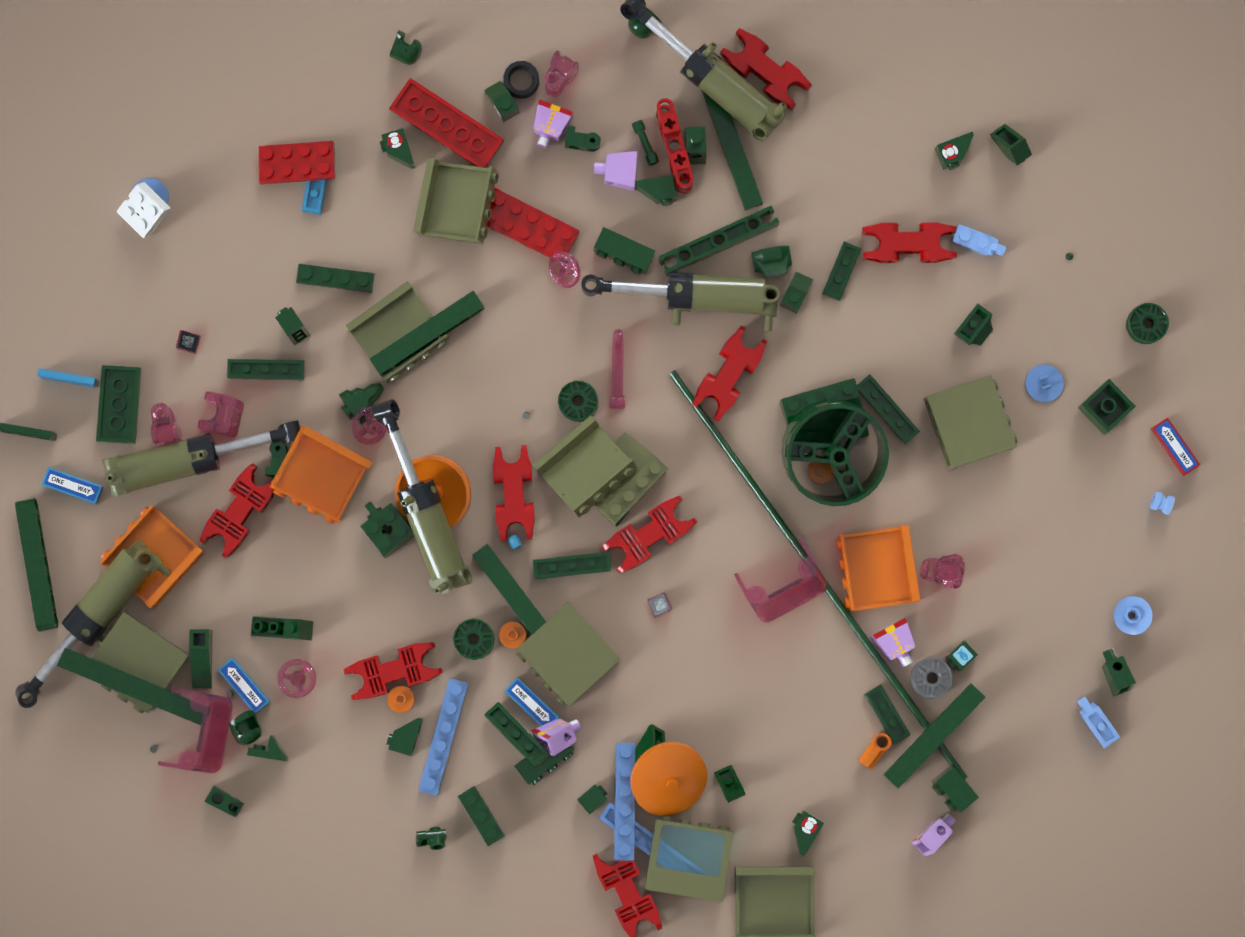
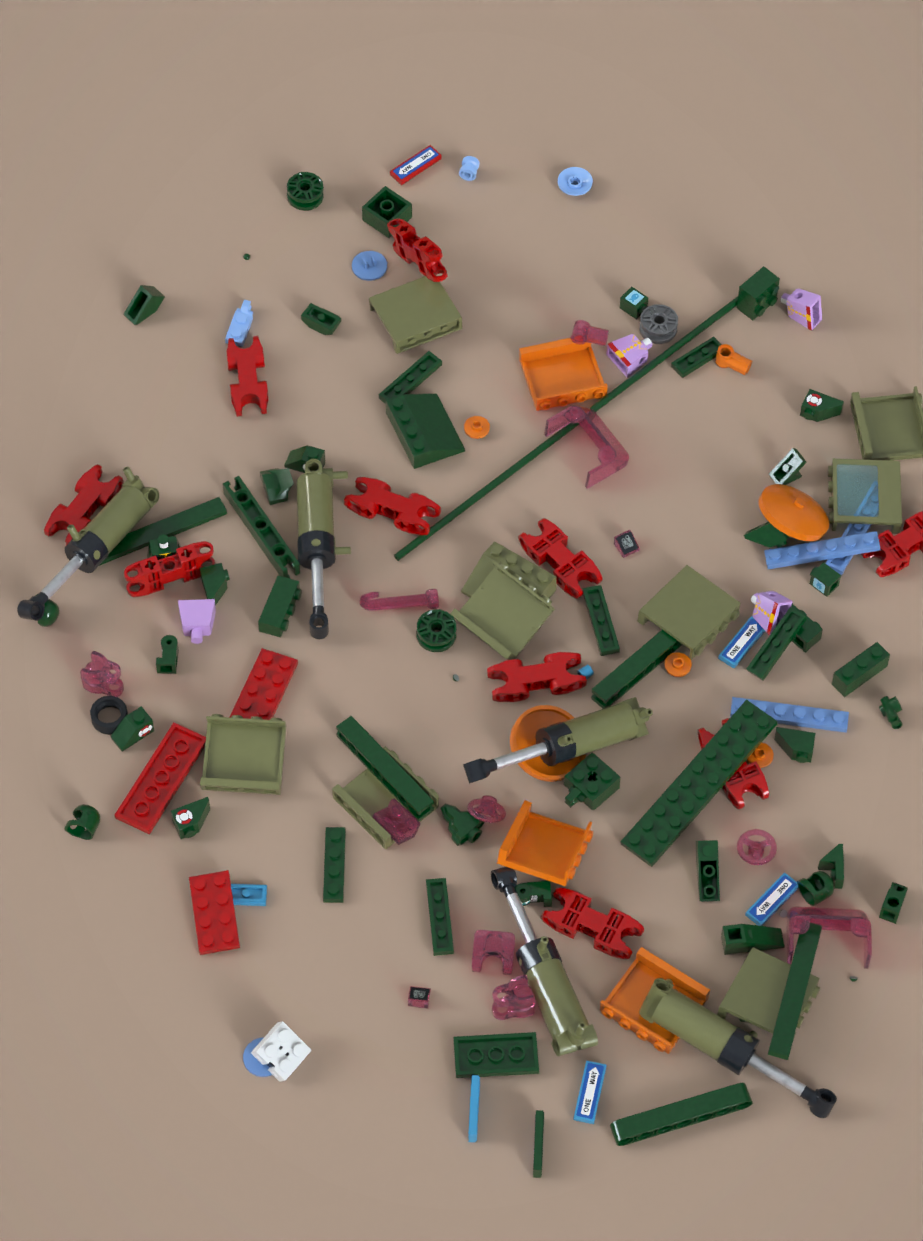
camera: 95 degrees left, 25 degrees down
(292, 325) = (393, 883): dark green brick -> none
(366, 338) = (397, 822): none -> clear pink bracket
(371, 633) = (698, 783): none -> dark green plate
(462, 636) = (684, 705): dark green wheel -> none
(551, 122) = (152, 683): lavender torso -> none
(566, 267) = (295, 653): clear pink piece -> none
(639, 128) = (151, 608): dark green bar -> none
(834, 453) = (478, 389): dark green wheel -> none
(841, 271) = (280, 429): dark green tile -> none
(916, 594) = (584, 333): none -> clear pink piece
(934, 735) = (712, 313): dark green piece -> none
(947, 570) = (557, 318): clear pink piece -> none
(953, 151) = (154, 347): dark green slope -> none
(1042, 430) = (418, 250): none -> red piece
(1097, 722) = (675, 200): light blue hinge -> none
(1120, 680) = (630, 185): dark green torso -> none

